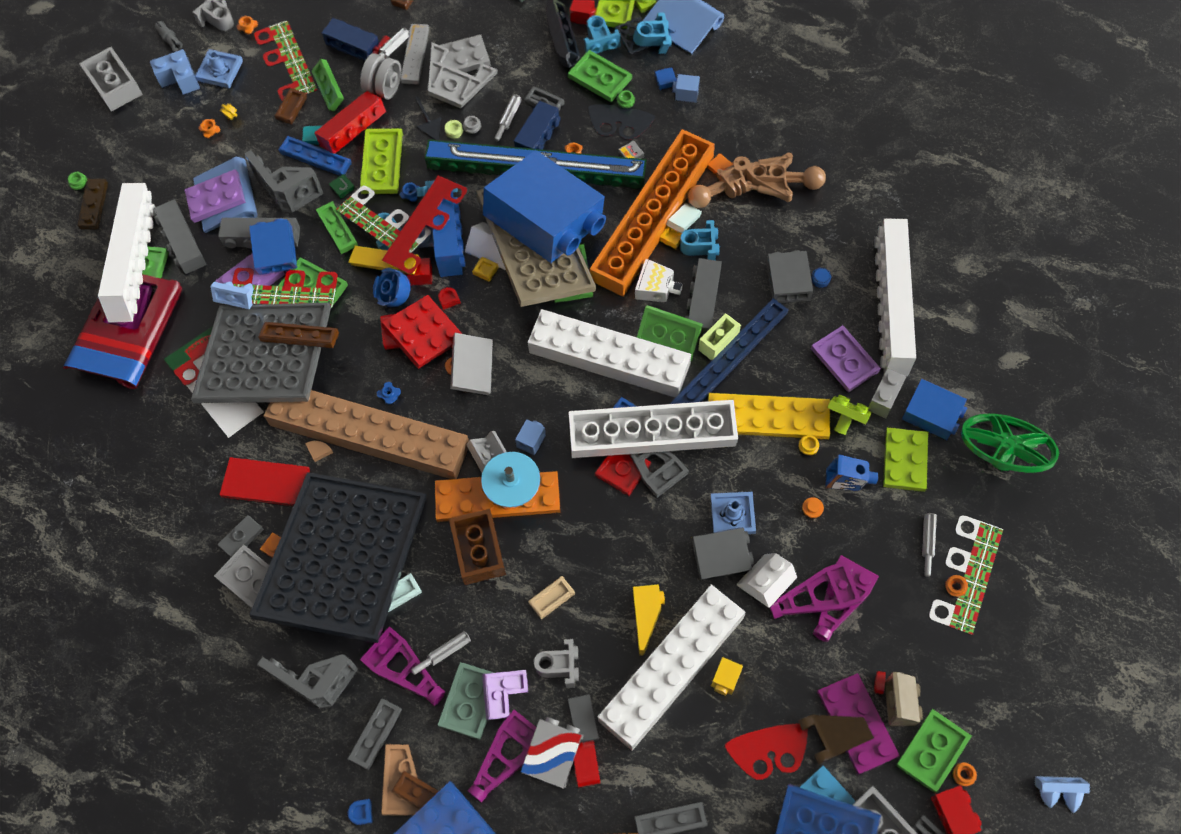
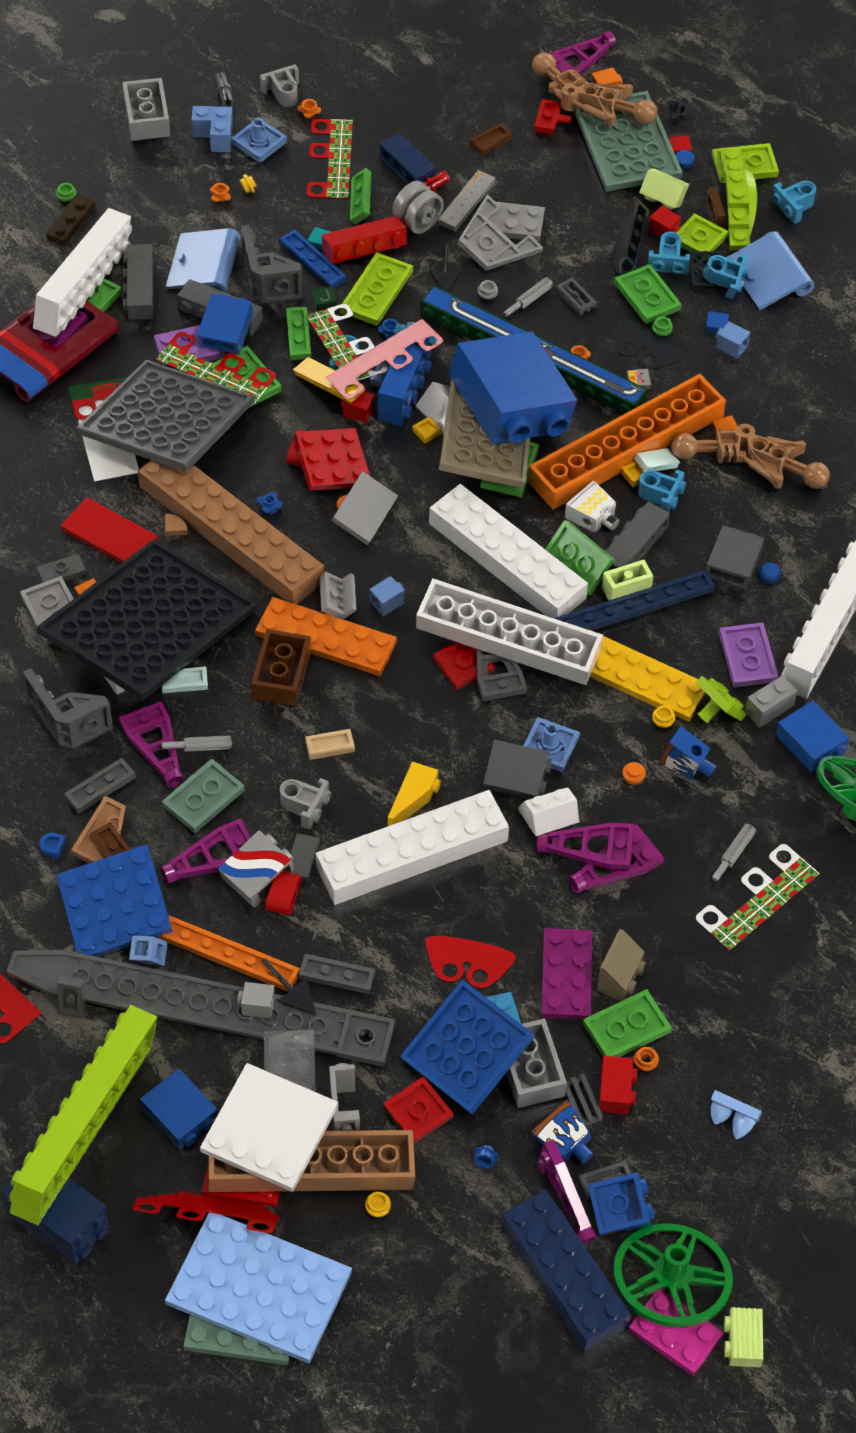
camera: 20 degrees right, 10 degrees down
(215, 196) = (193, 256): medium lavender plate -> none
(232, 295) = (163, 352): light blue tile -> none
(291, 106) = (313, 203): reddish brown tile -> none
(298, 334) = (208, 411): reddish brown tile -> none
(391, 288) = (322, 408): blue cylinder -> none
(394, 42) = (450, 181): axle -> none
(448, 297) = (375, 441): red tile -> none
(453, 129) = (467, 287): yellowish green tile -> none
(497, 688) = (236, 793): tile -> none
(510, 479) = (344, 618): medium azure piece -> none
(538, 127) = (554, 317): dark blue brick -> none
(726, 676) = (461, 878): yellow brick -> none
(837, 733) = (538, 969): dark brown flag -> none
(879, 682) = (606, 944): red tile -> none
(905, 459) = (756, 770): lime plate -> none
(956, 579) = (738, 893): orange plate -> none

